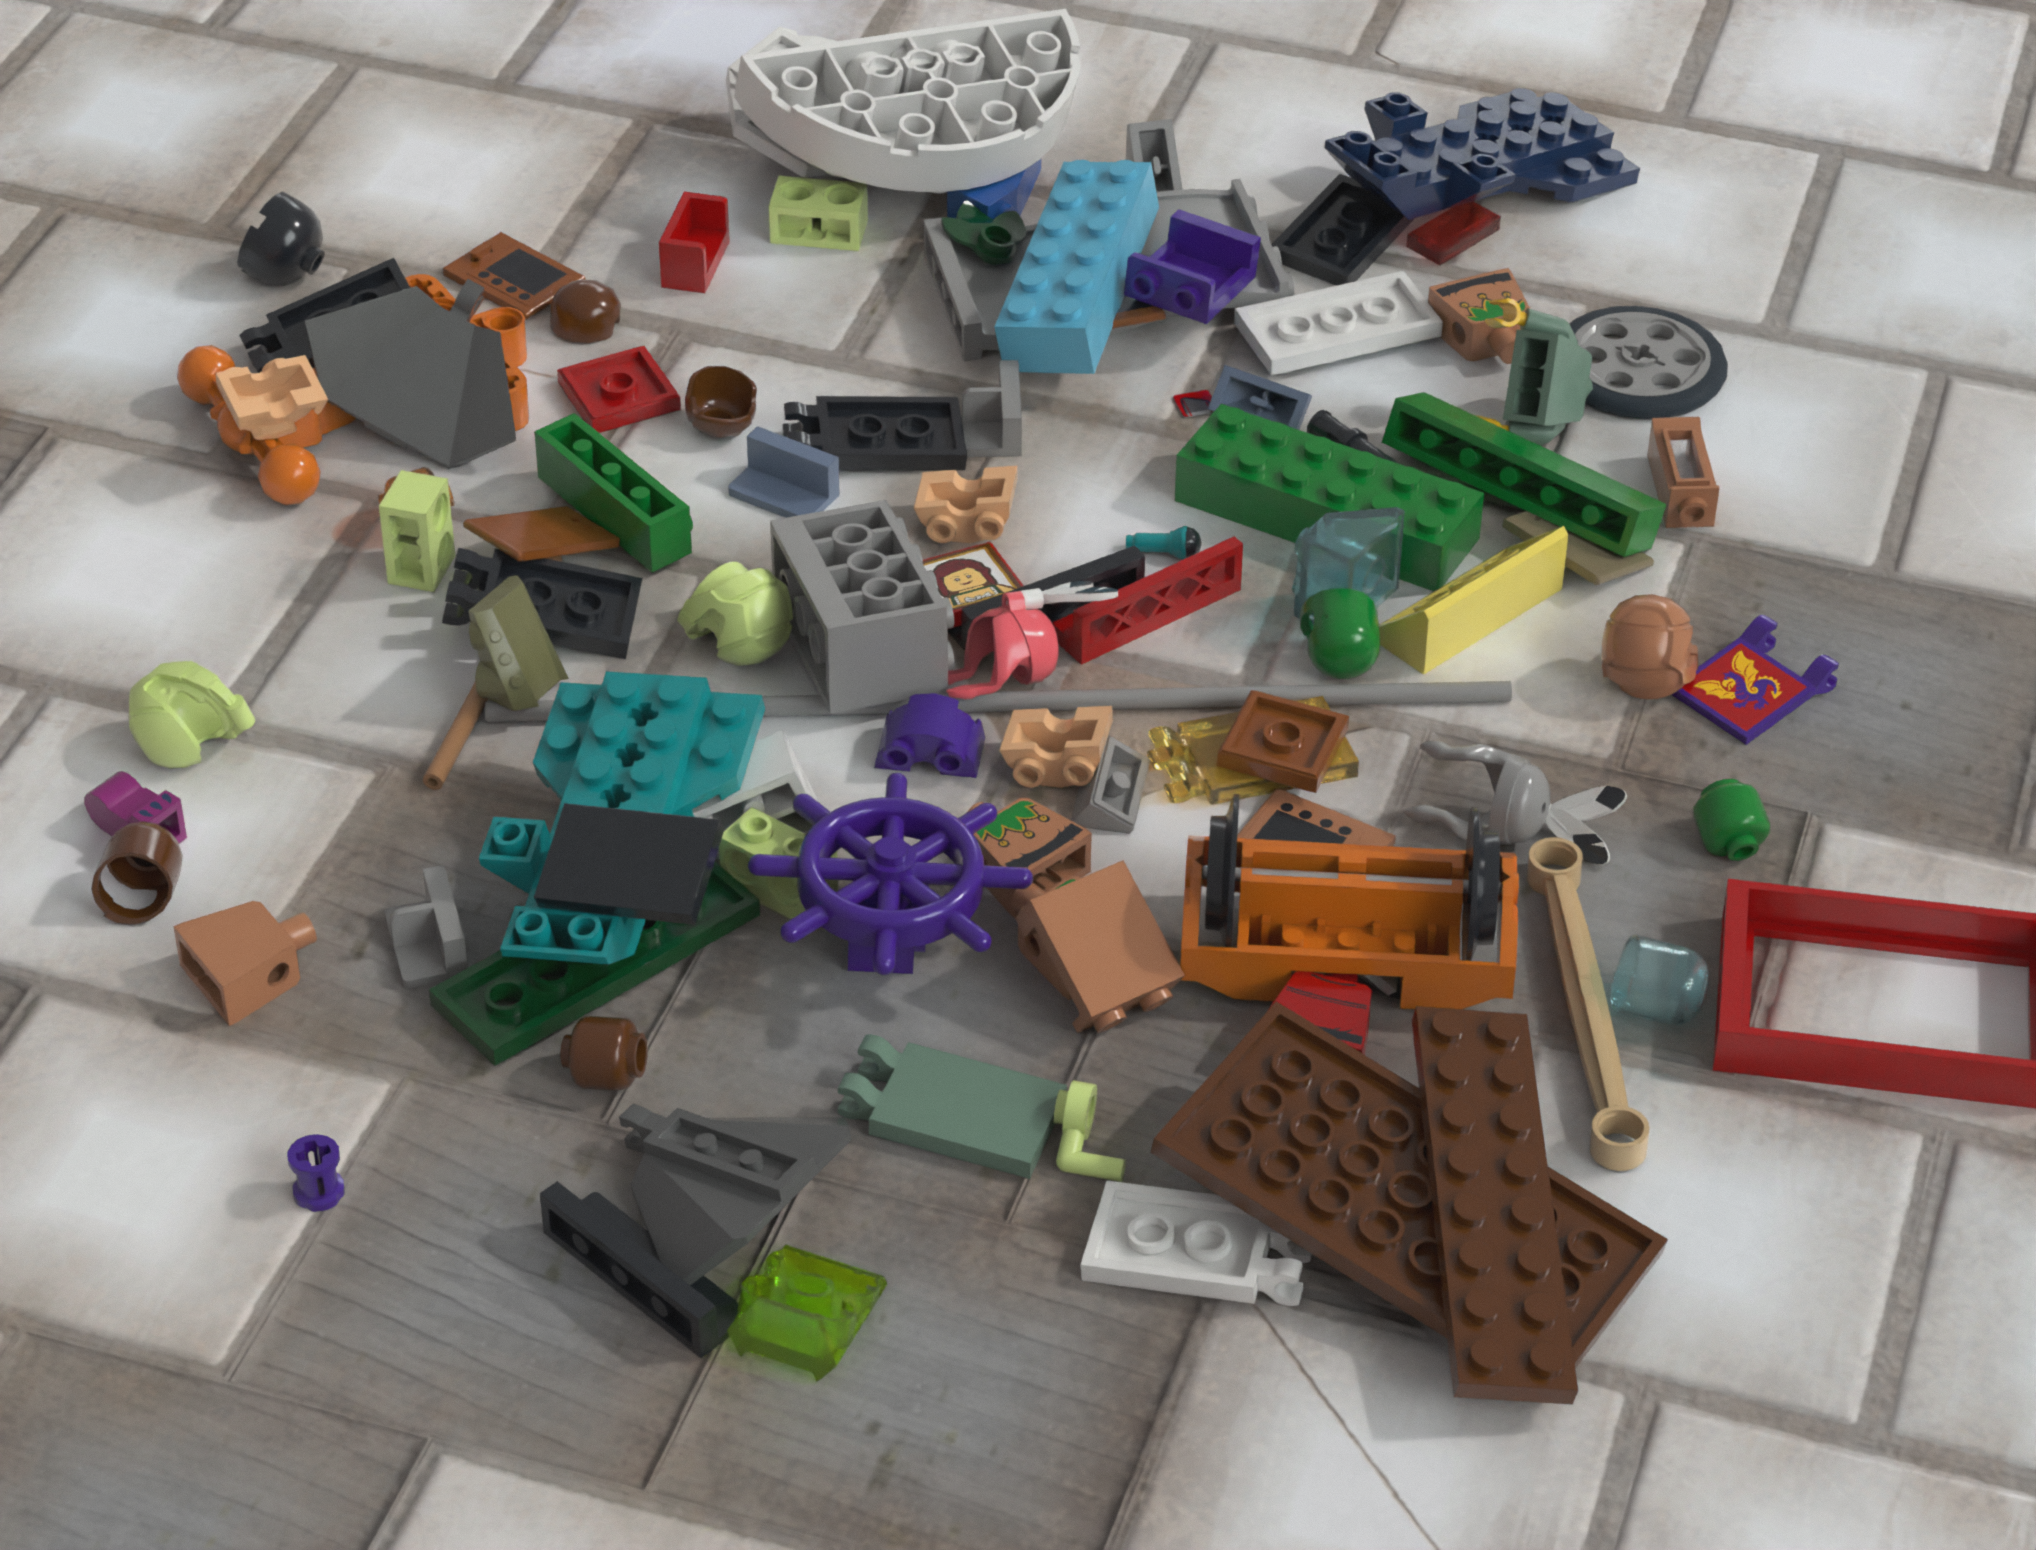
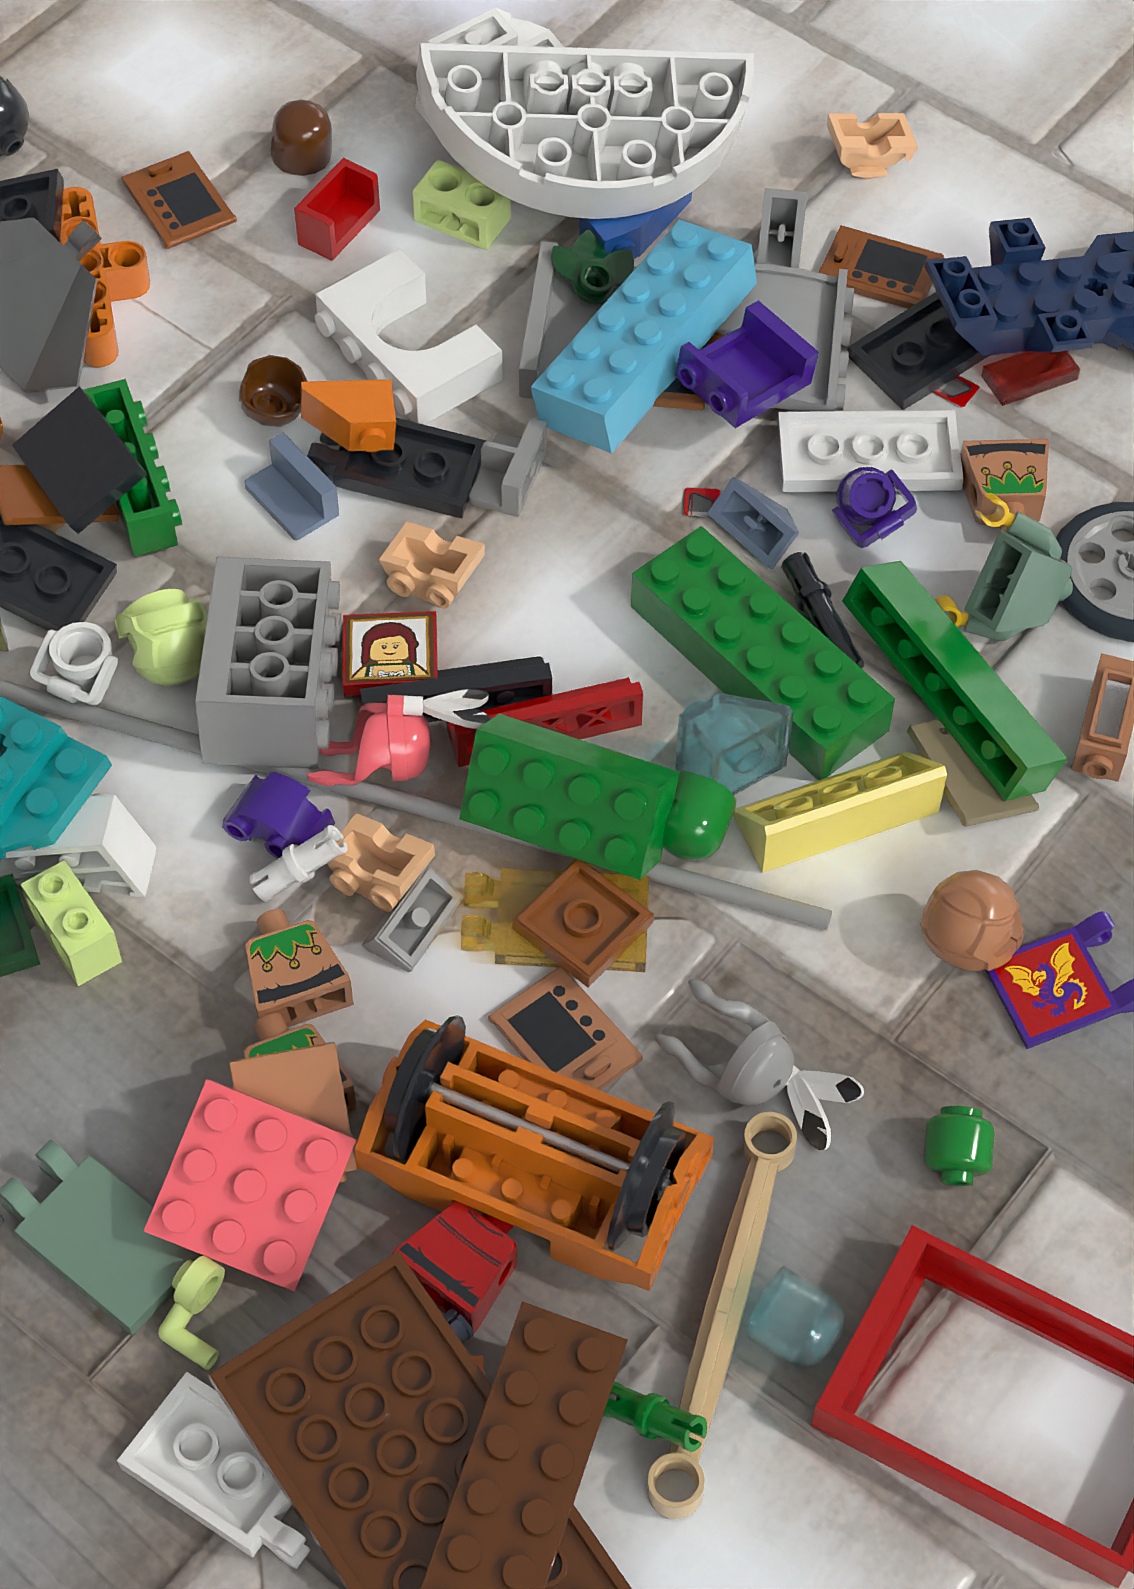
camera: 20 degrees right, 15 degrees up
(567, 487) = (79, 460): none -> black tile
(584, 311) = (214, 257): reddish brown hair -> none
(619, 389) = (203, 348): red tile -> none
(623, 189) = (301, 138): none -> reddish brown helmet
(660, 648) = (83, 660): none -> white piece
(820, 392) = (352, 412): none -> orange slope
(874, 361) = (422, 380): none -> white arch
(889, 903) = (139, 986): dark purple piece -> none
(981, 761) = (298, 863): none -> white pin
(1093, 1006) = (250, 1185): none -> coral plate
(1181, 542) = (607, 660): teal piece -> none
(1199, 82) = (871, 145): none -> light nougat cylinder
(1220, 636) = (568, 795): none -> green brick
(1272, 180) = (880, 267): none -> dark orange container
(1360, 357) = (868, 499): none -> dark purple piece
(1391, 262) = (958, 391): none -> sticker
(1577, 1084) = (655, 1417): none -> green pin

